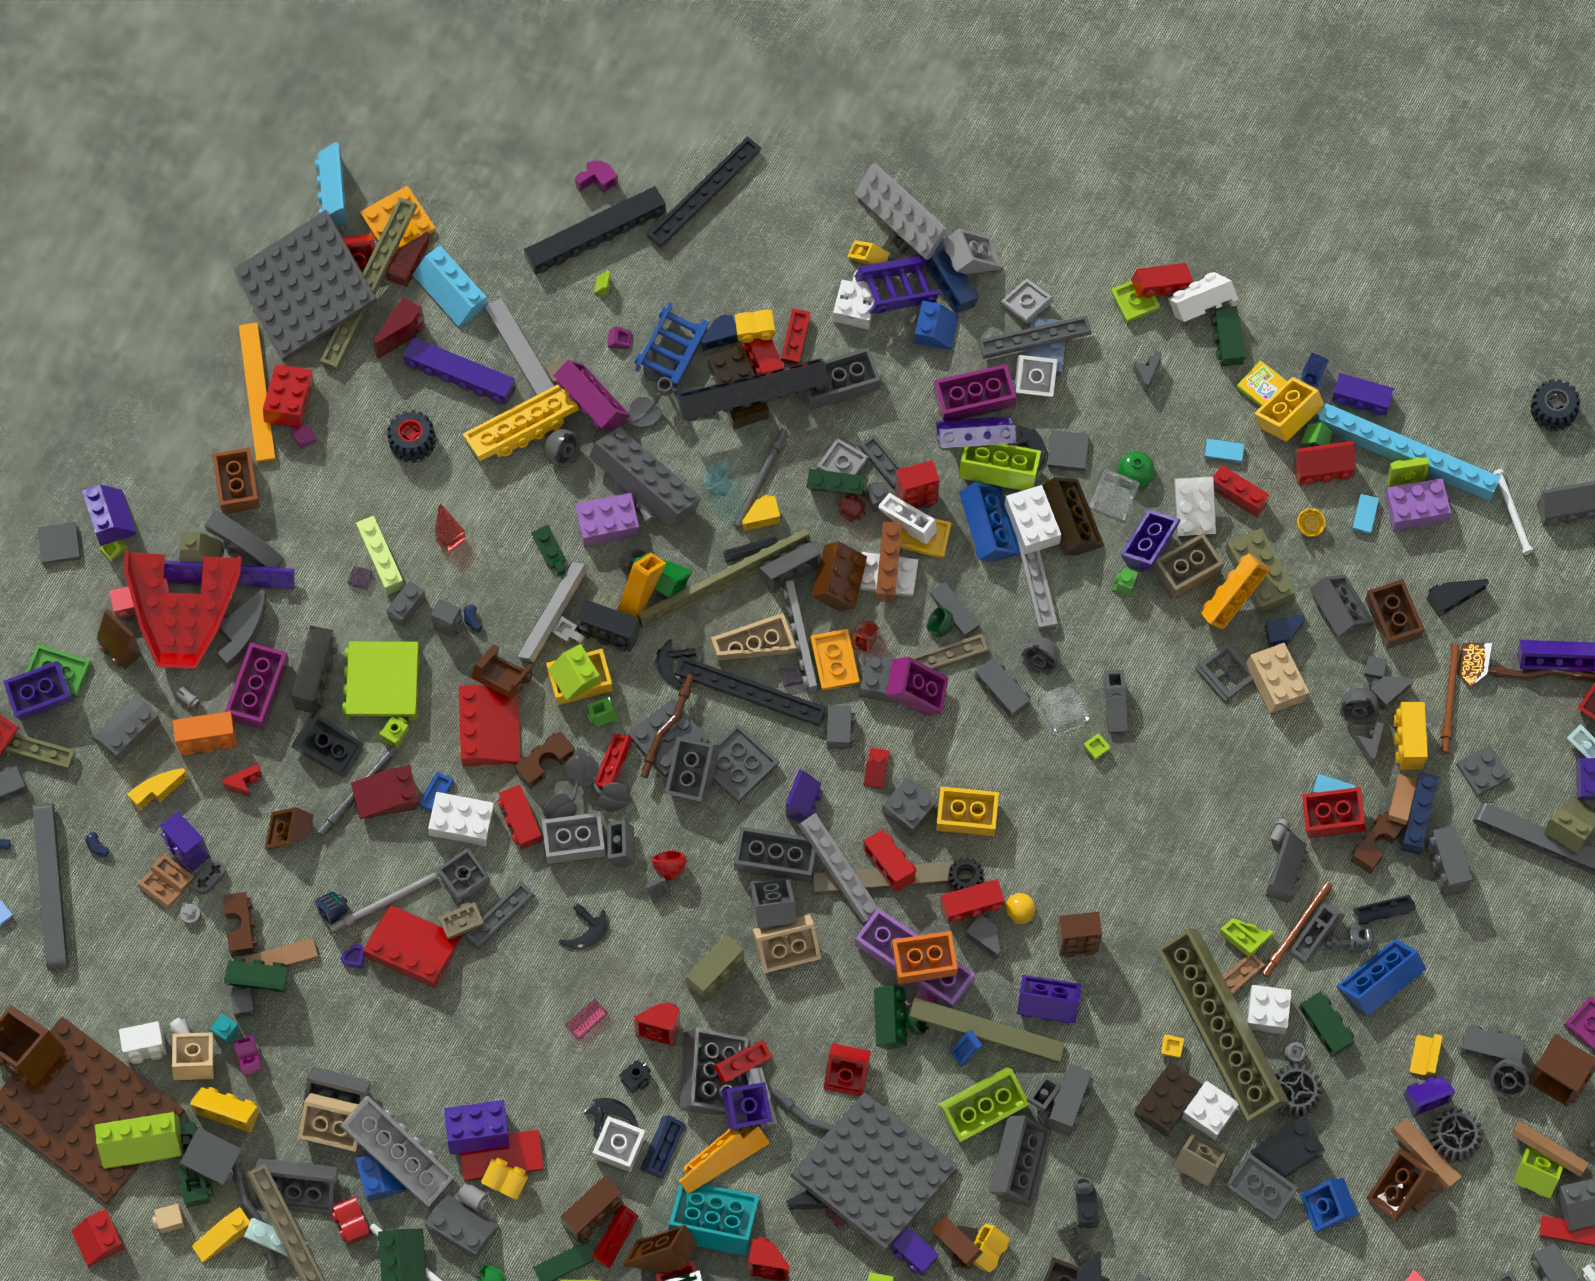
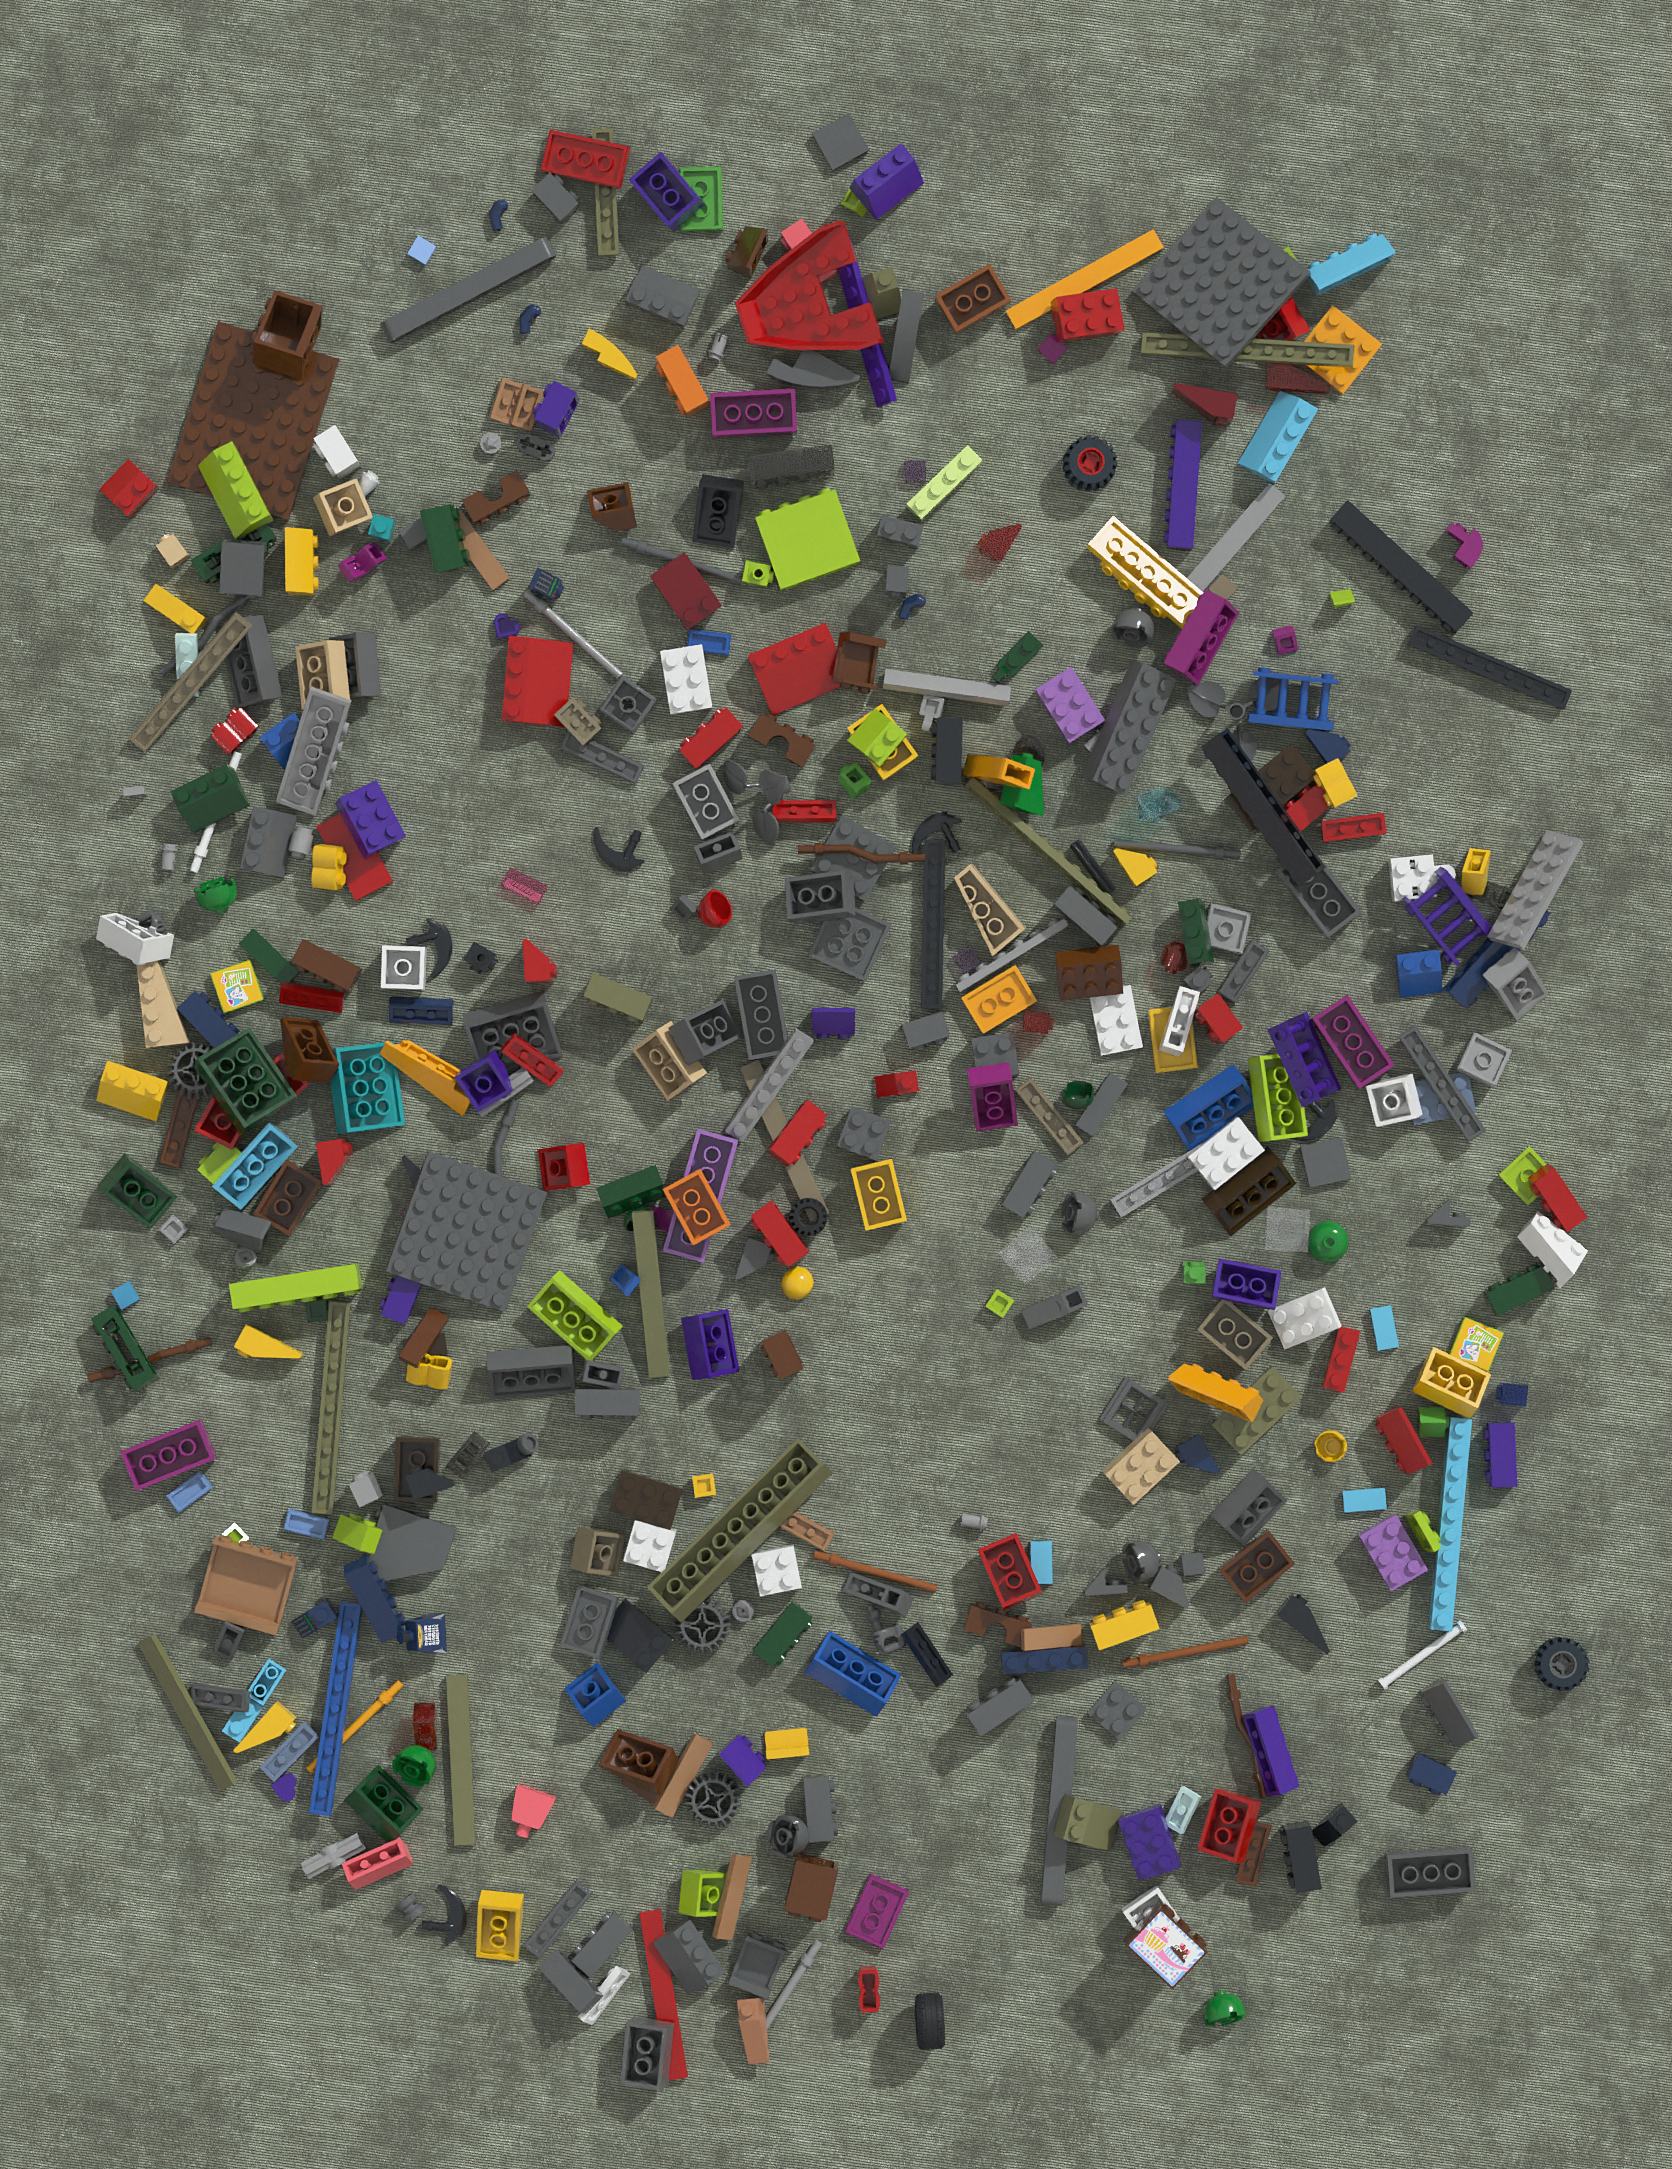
camera: 70 degrees right, 20 degrees up
(237, 781) = (645, 436): red slope -> none
(888, 562) = (1123, 1018): dark orange brick -> none
(1245, 936) = (847, 1522): lime wing -> none
(1287, 868) = (934, 1542): dark grey slope -> none
(1474, 661) = (1234, 1665): sticker -> none

